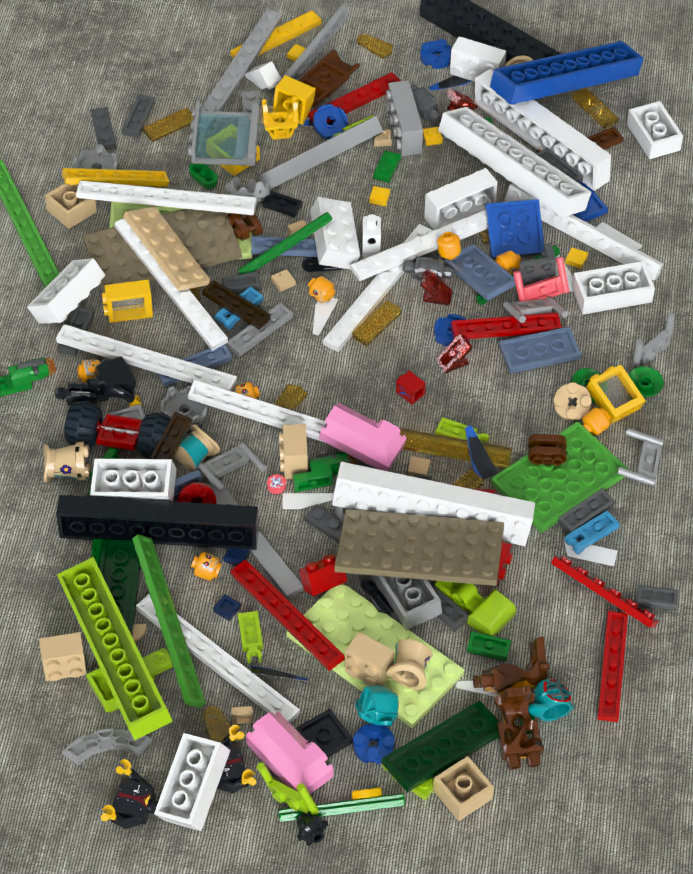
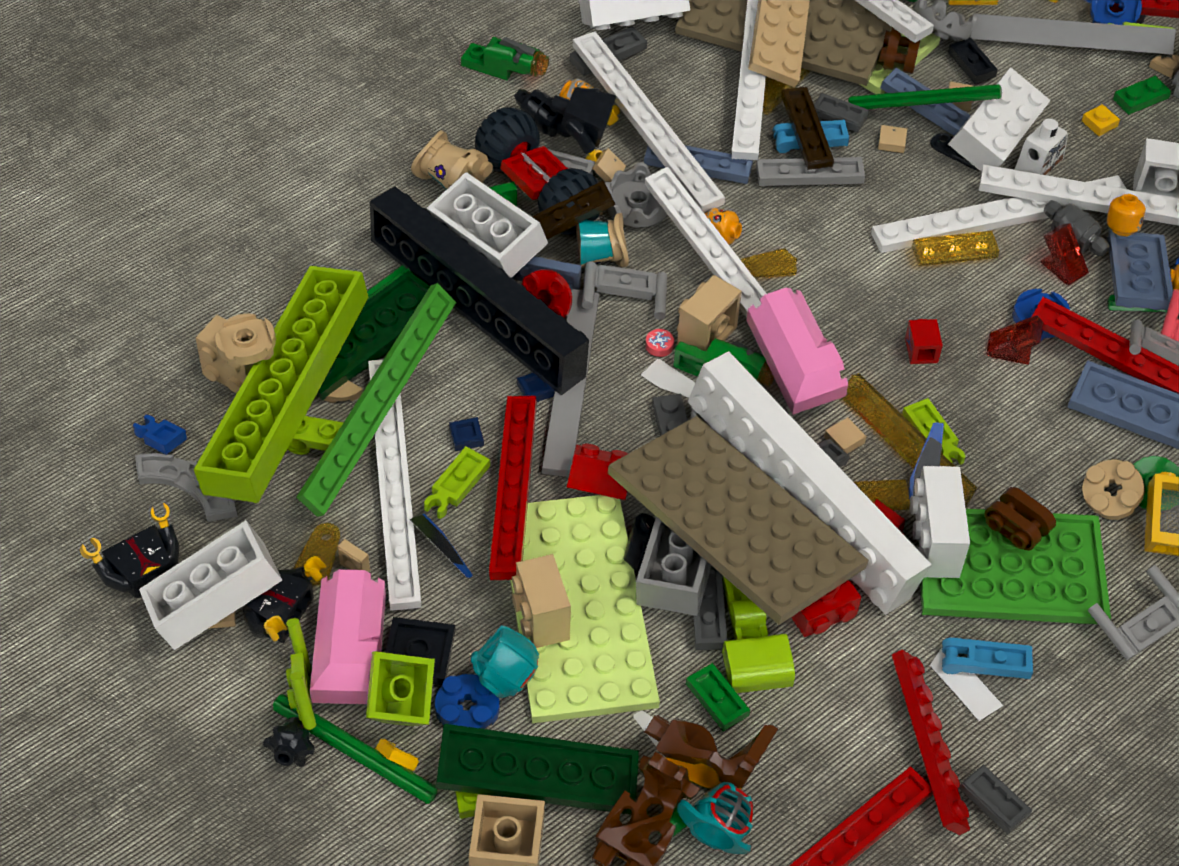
camera: 40 degrees right, 0 degrees up
(65, 730) = (160, 436): none -> blue plate
(79, 649) = (239, 353): none -> tan plate
(127, 301) = (689, 51): yellow window -> none
(149, 402) = (607, 165): none -> tan tile
(206, 566) = (486, 373): light orange head -> none
(321, 289) = (925, 172): light orange head -> none
(322, 313) = (905, 199): white sticker -> none
(346, 756) = (400, 689): none -> lime slope
(410, 664) = (587, 640): tan hat -> none
(516, 475) = (941, 520): none -> white brick
(586, 510) = (1006, 627): dark grey plate -> none
(596, 421) = (1123, 531): light orange head -> none

